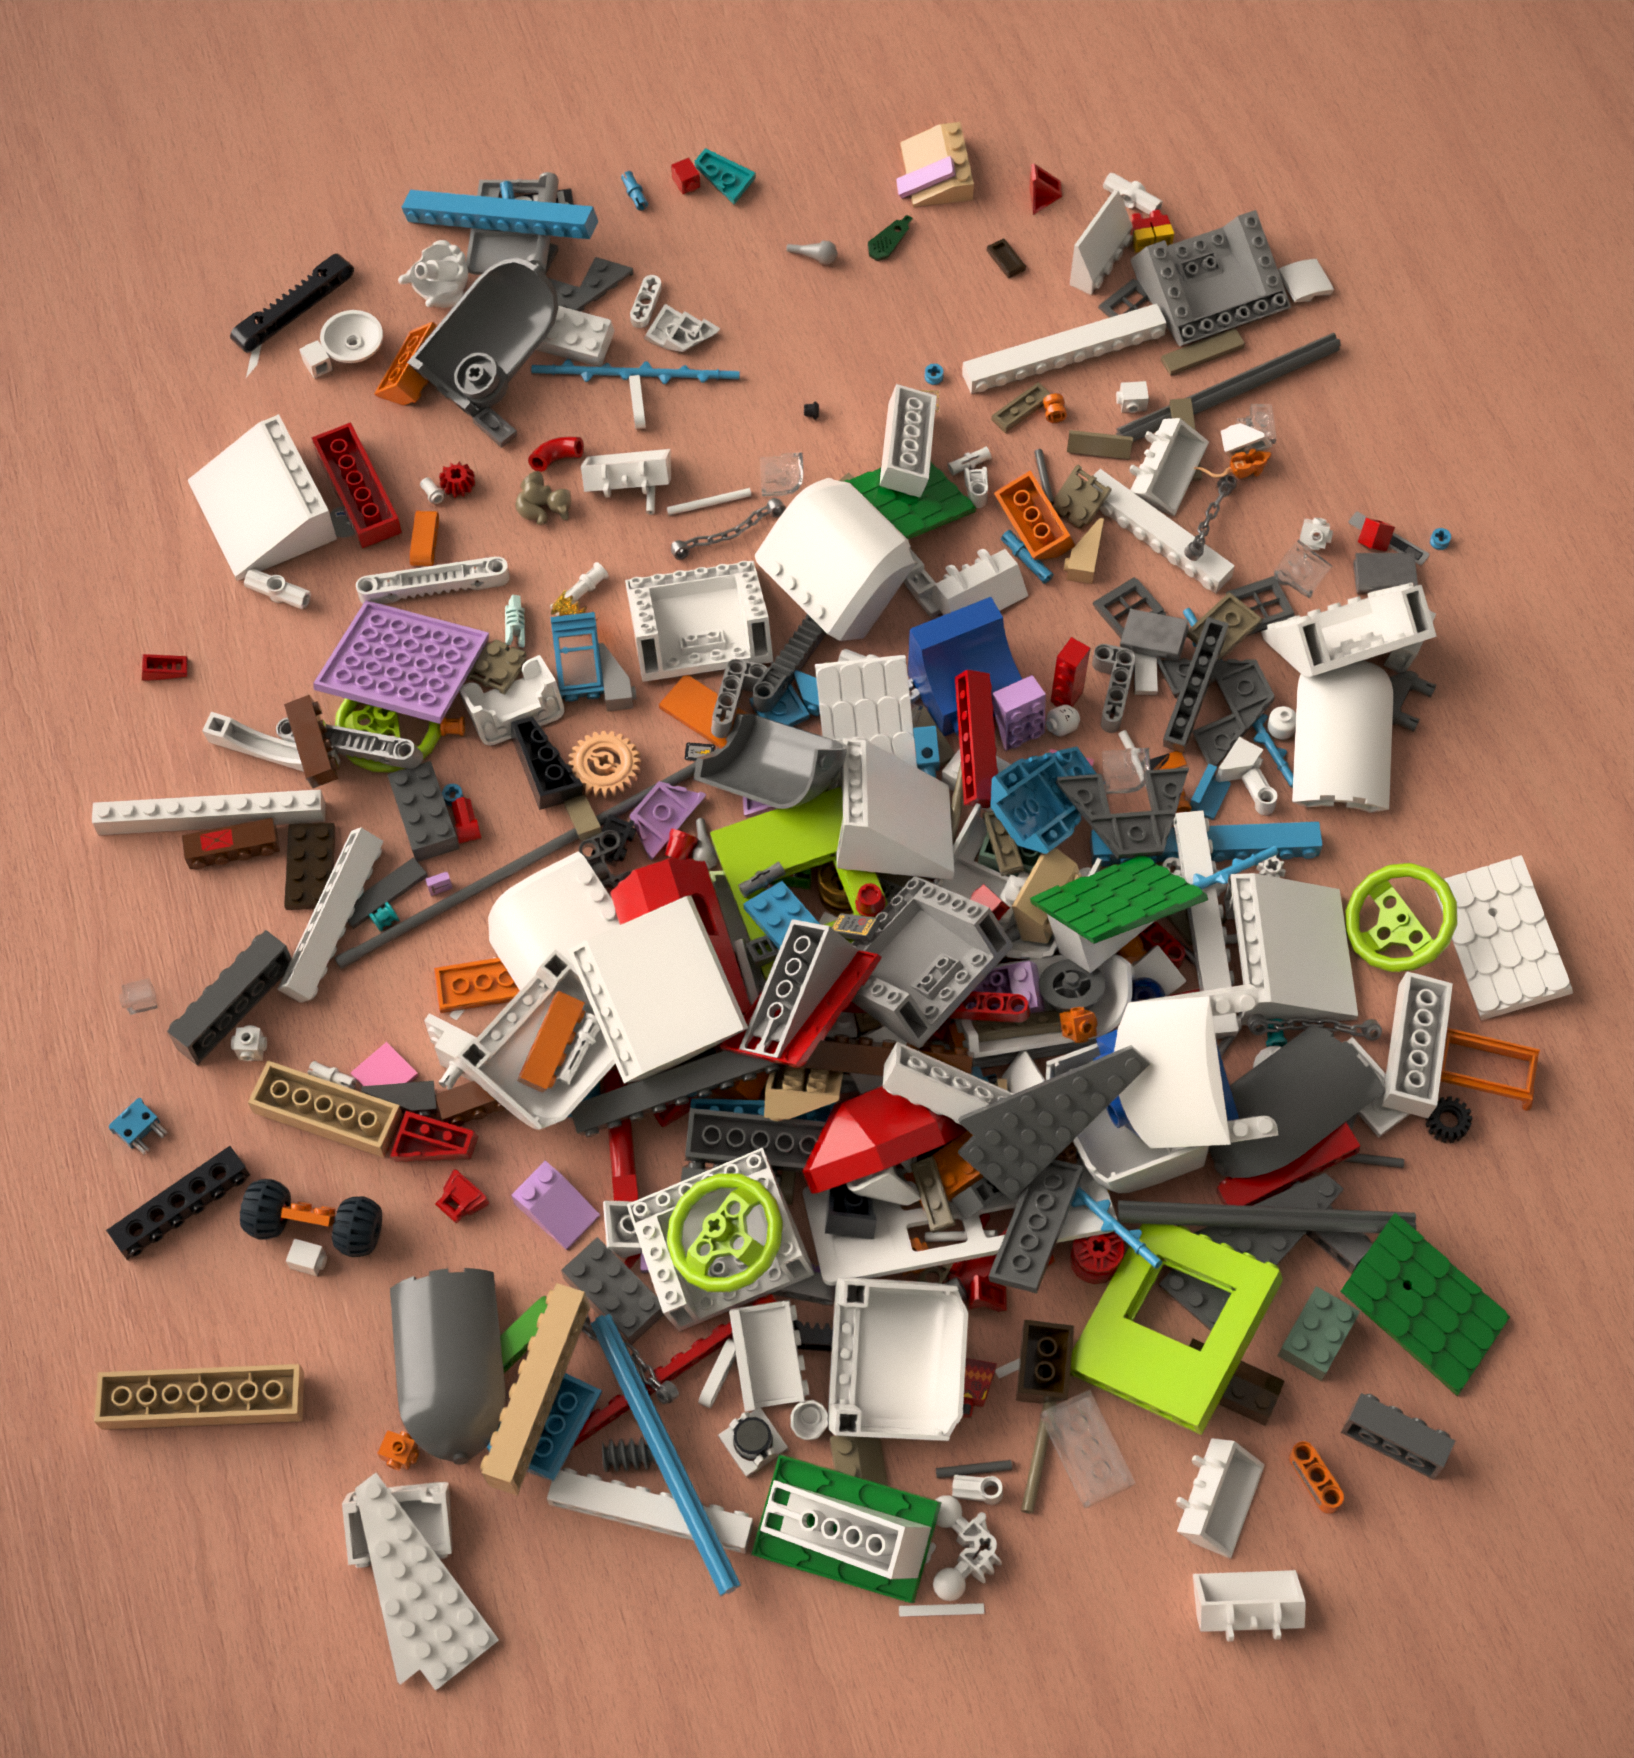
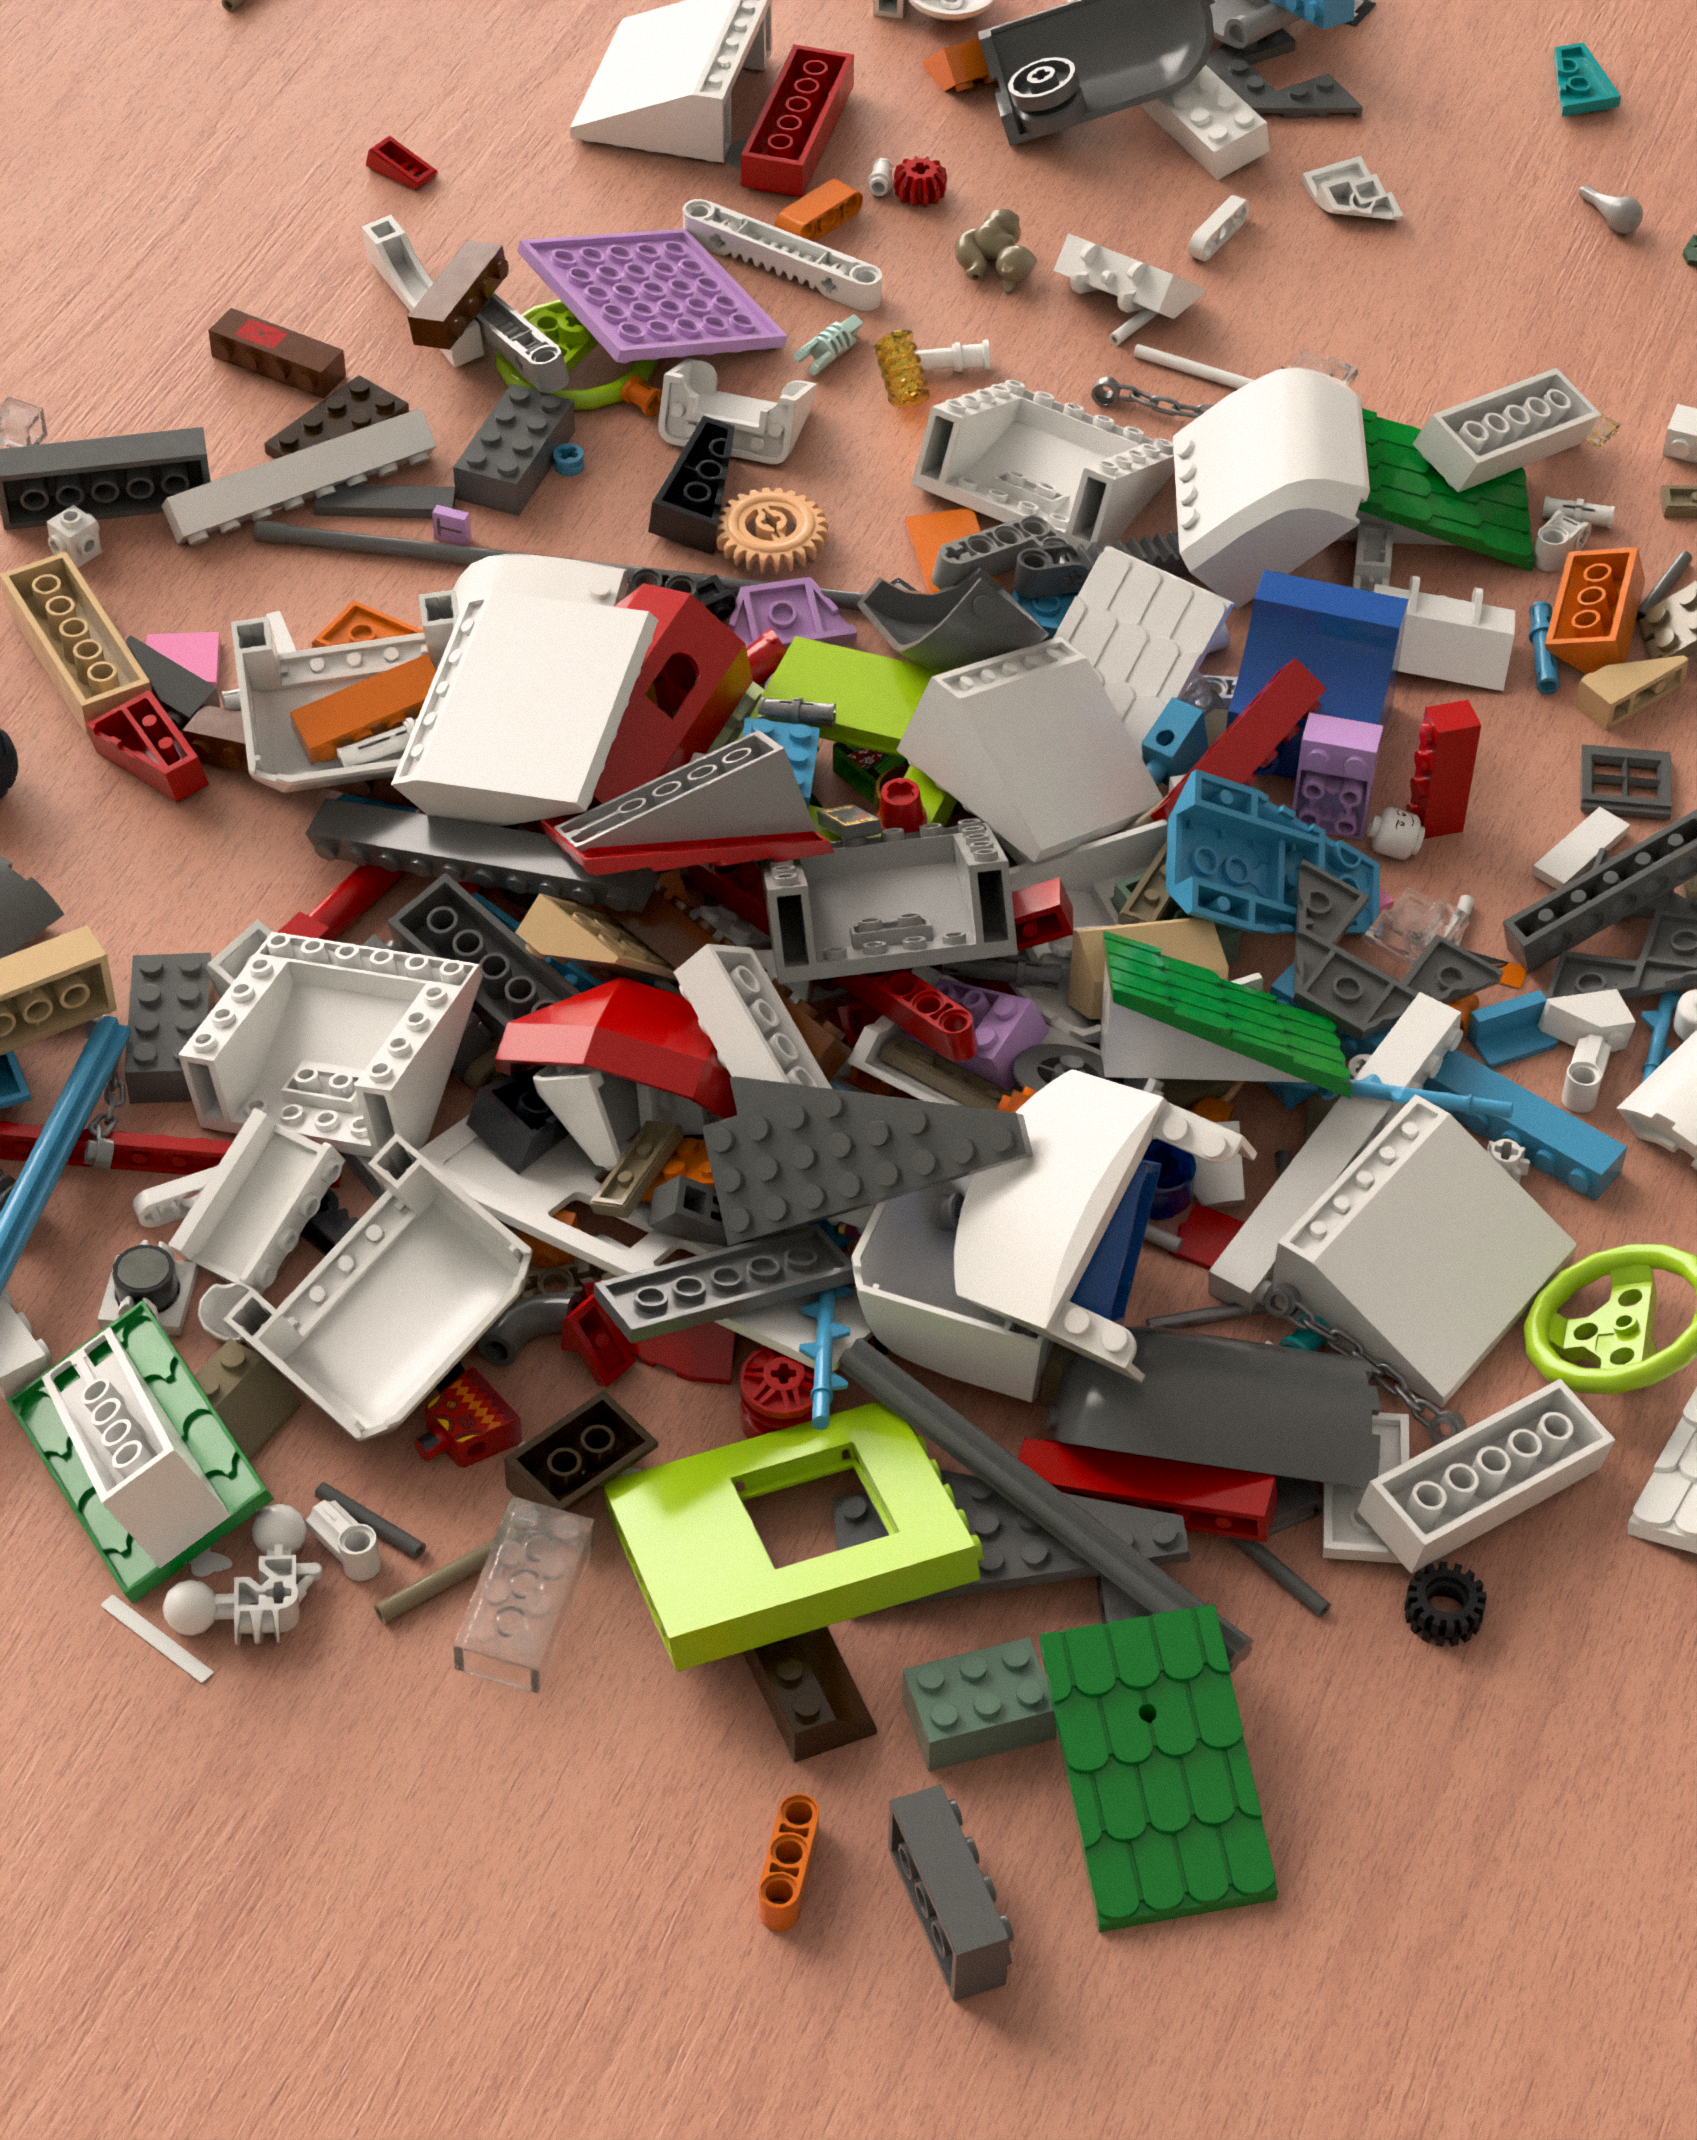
camera: 40 degrees right, 15 degrees down
(207, 812) = (259, 293): white brick -> none
(267, 584) = (602, 164): white piece -> none
(331, 1074) = (122, 619): white pin -> none
(384, 916) = (367, 513): teal bush -> none
(464, 1194) = (119, 825): red piece -> none
(466, 824) = (549, 493): red piece -> none
(494, 426) = (1022, 160): flat silver plate -> none
(498, 665) = (759, 372): dark tan plate -> none
(554, 450) = (1064, 217): red cylinder -> none
(555, 1205) = (208, 896): lavender slope -> none
(577, 656) = (858, 407): dark azure door -> none
(582, 817) = (683, 557): dark tan tile -> none
(616, 682) = (873, 468): light grey slope -> none
(634, 190) = (1449, 39): dark azure pin -> none
(644, 371) = (1265, 208): dark azure plant -> none
(647, 309) = (1359, 138): white beam -> none
(685, 176) = (1528, 56): red brick -> none
(722, 1230) = (323, 1003): lime piece -> none
(812, 410) = (1430, 354): black piece -> none
(934, 380) = (1632, 406): dark azure bush -> none
(1116, 690) = (1533, 829): light grey beam -> none
(1155, 634) = (1616, 810): flat silver piece -> none
(1169, 943) = (1258, 1126): red beam -> none
(1220, 1496) = (638, 1786): white piece -> none
(1249, 1601) = (535, 1929): white piece -> none
(1498, 1047) = (1597, 1653): orange piece -> none

